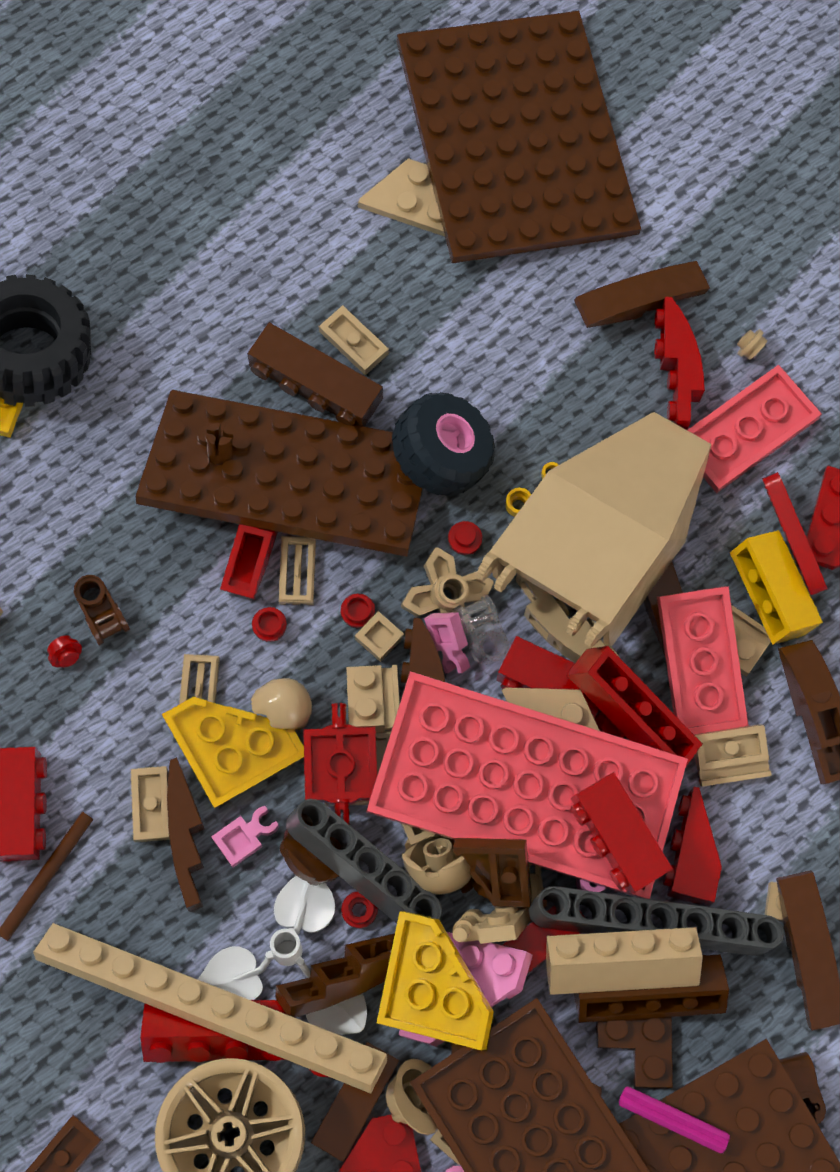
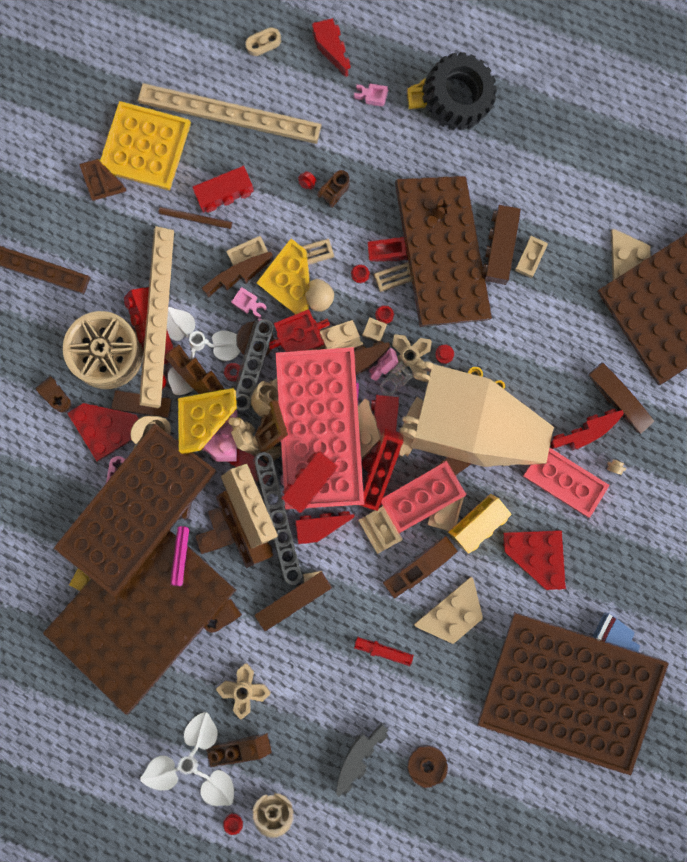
camera: 70 degrees right, 10 degrees up
(443, 444) = (488, 322): black wheel -> none
(794, 534) = (513, 523): red beam -> none

